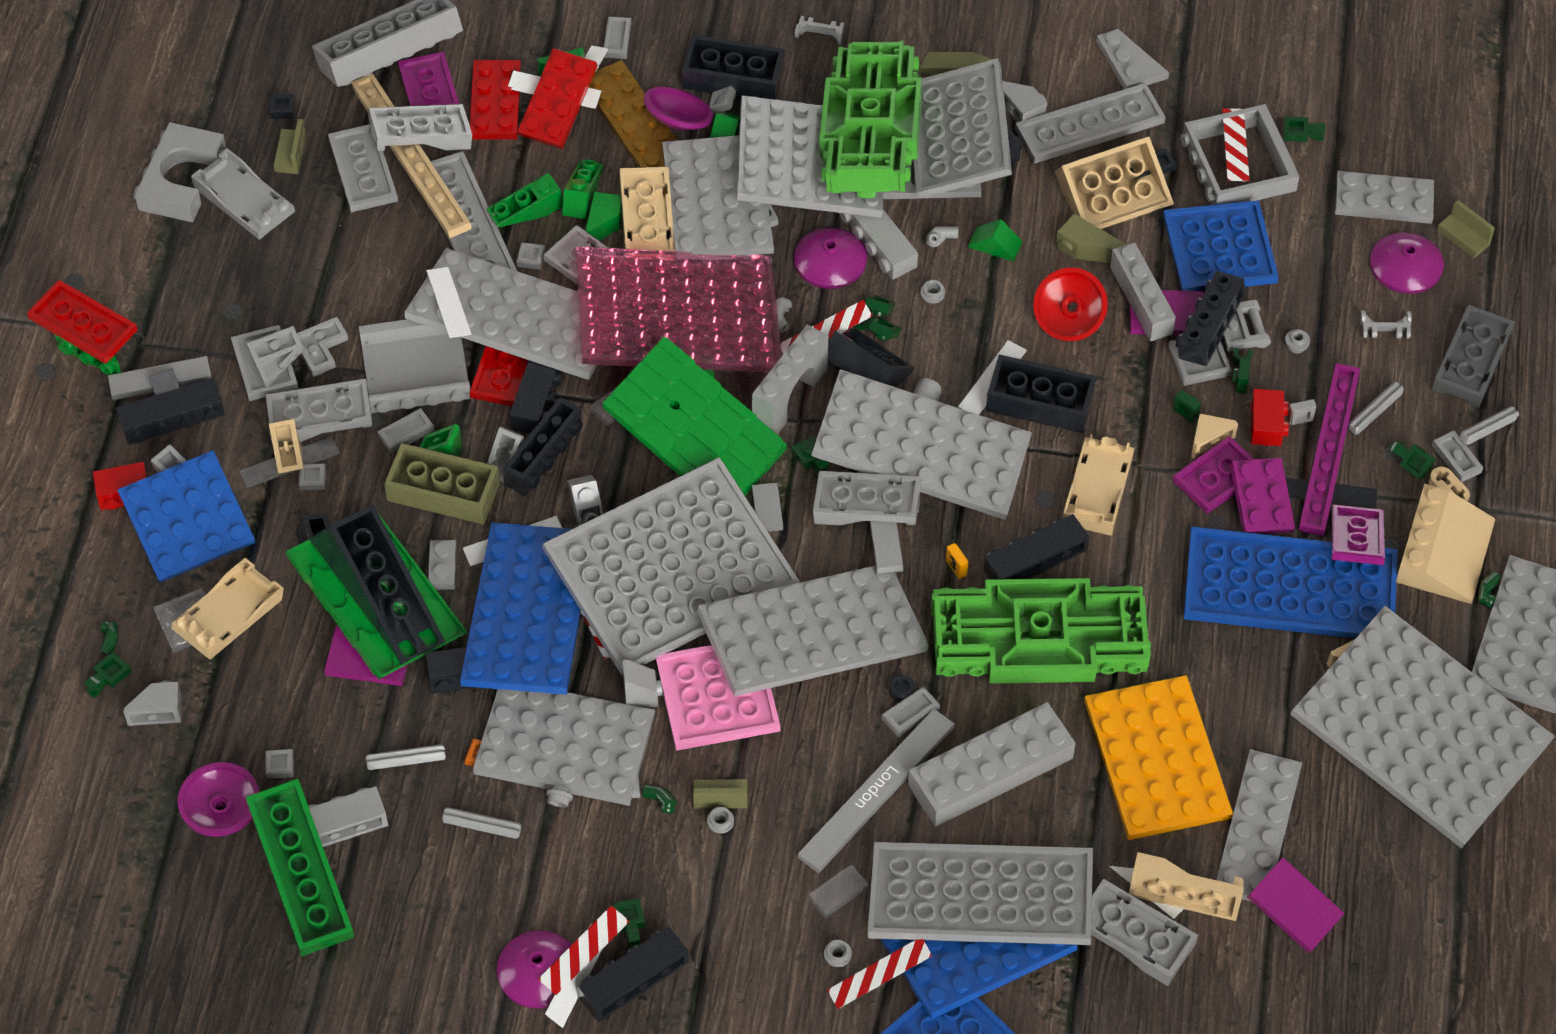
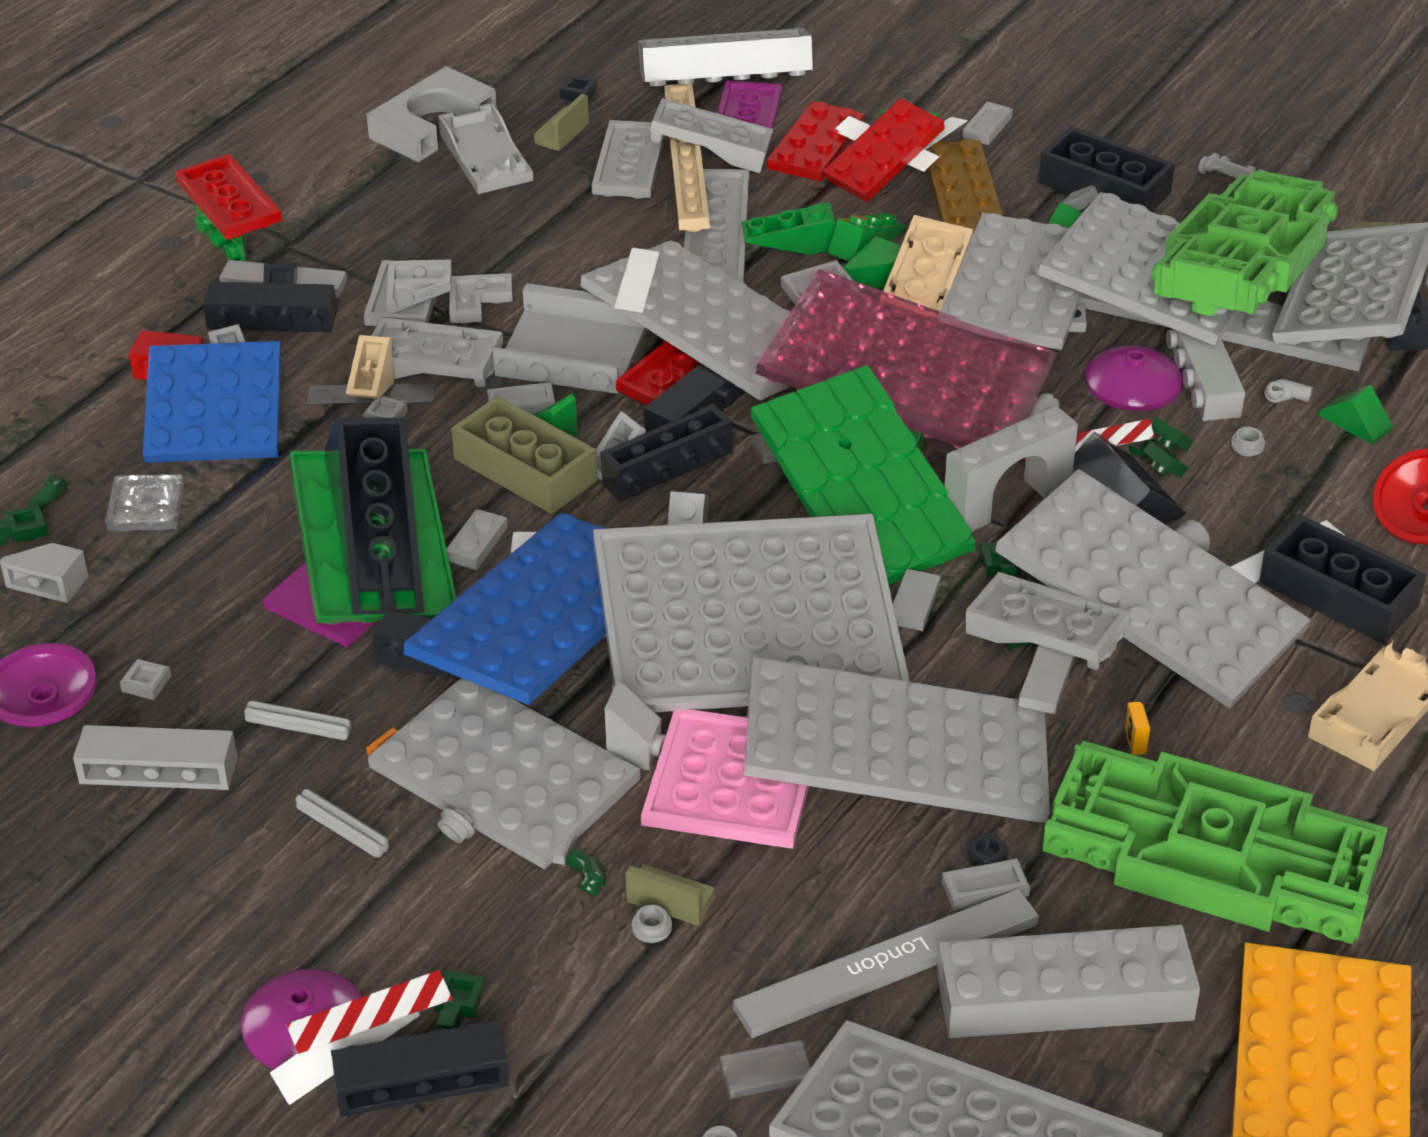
camera: 25 degrees right, 15 degrees down
(228, 609) = (200, 501): tan piece -> none
(299, 867) = (71, 784): green brick -> none
(530, 256) = (767, 282): light grey tile -> none
(678, 108) = (1017, 192): magenta dish -> none
(1038, 551) = (1260, 747): black brick -> none

